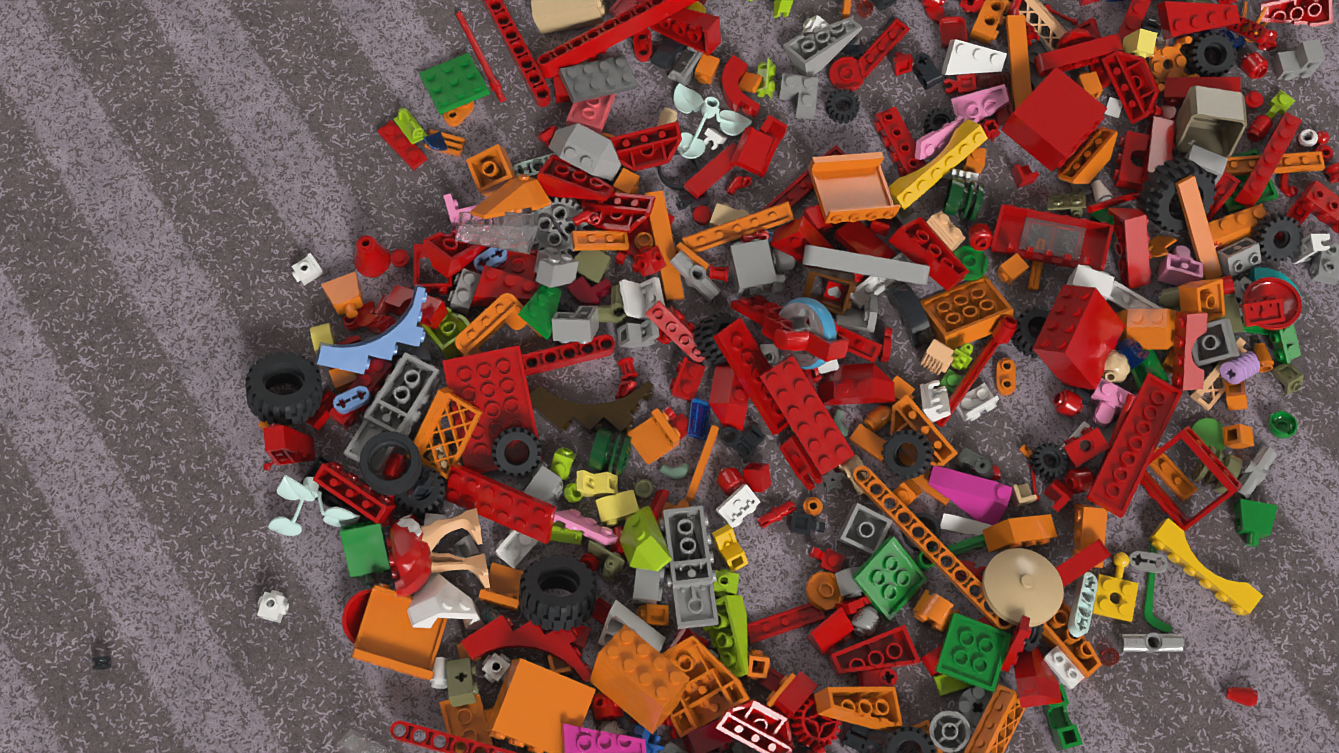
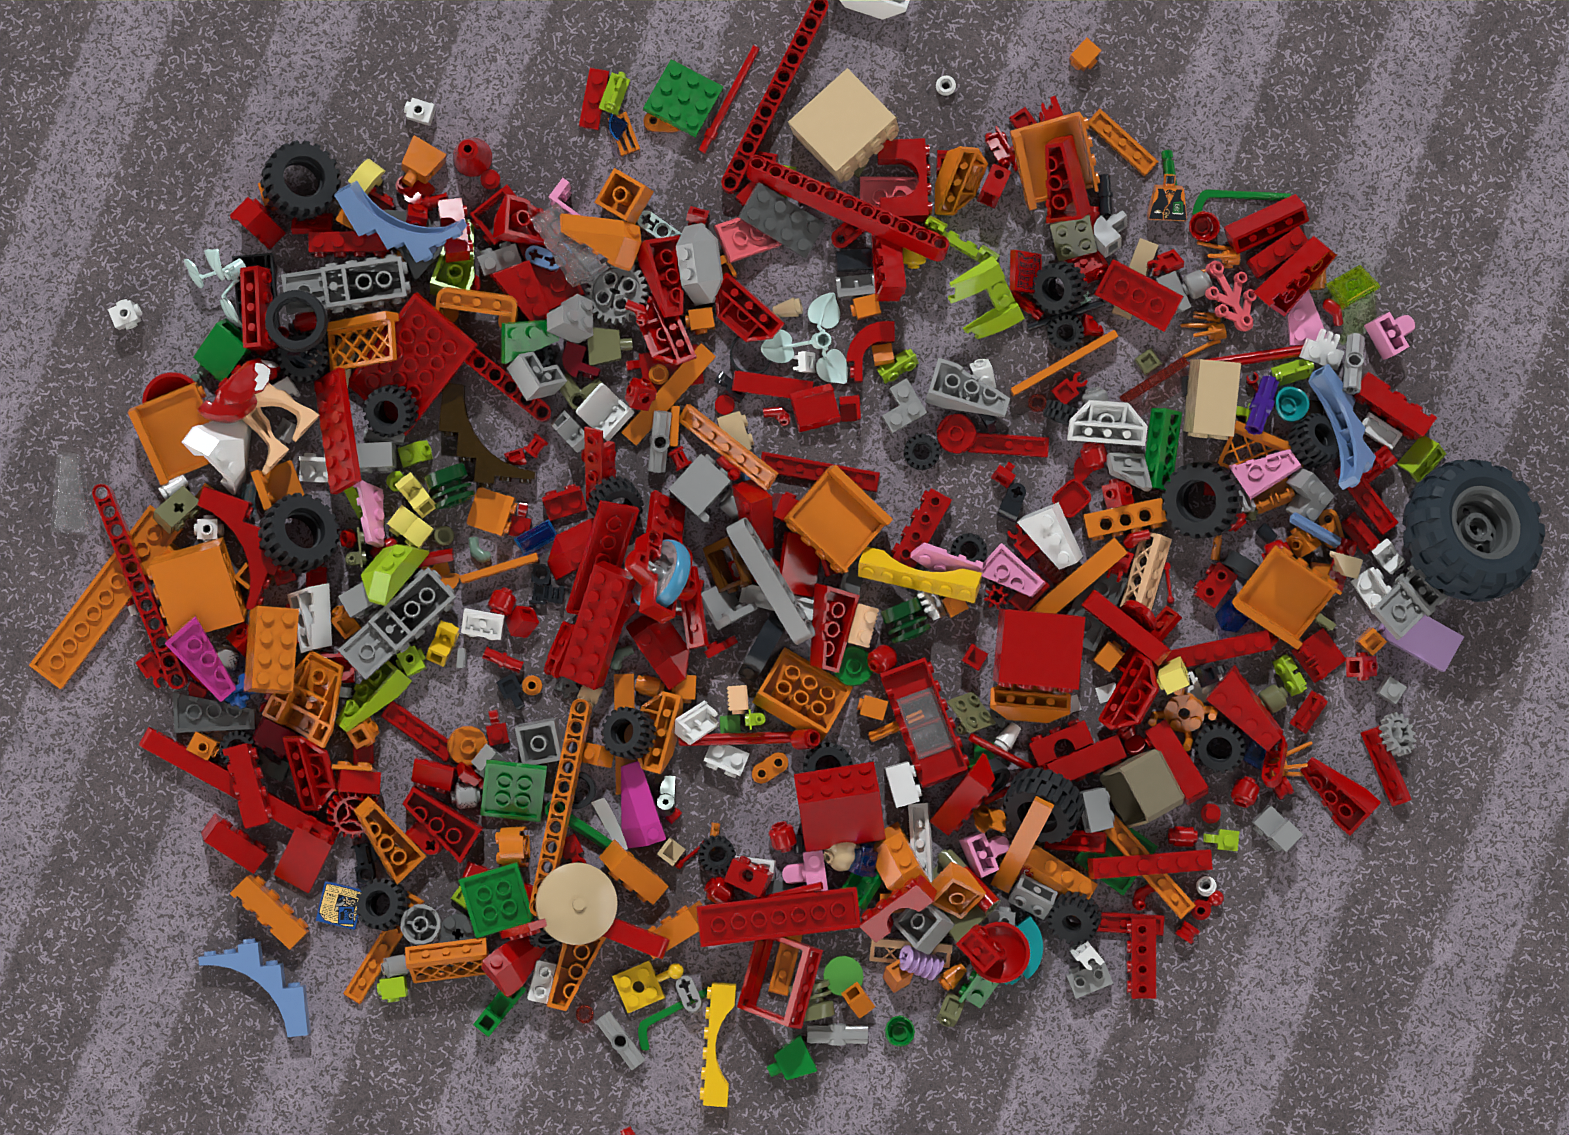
camera: 55 degrees right, 15 degrees up
(350, 395) = (329, 247): medium blue beam -> none
(599, 240) = (627, 337): orange tile -> none
(751, 543) = (461, 657): none -> light grey tile
(1058, 494) = (695, 882): red panel -> none
(1075, 617) = (608, 966): light aqua beam -> none

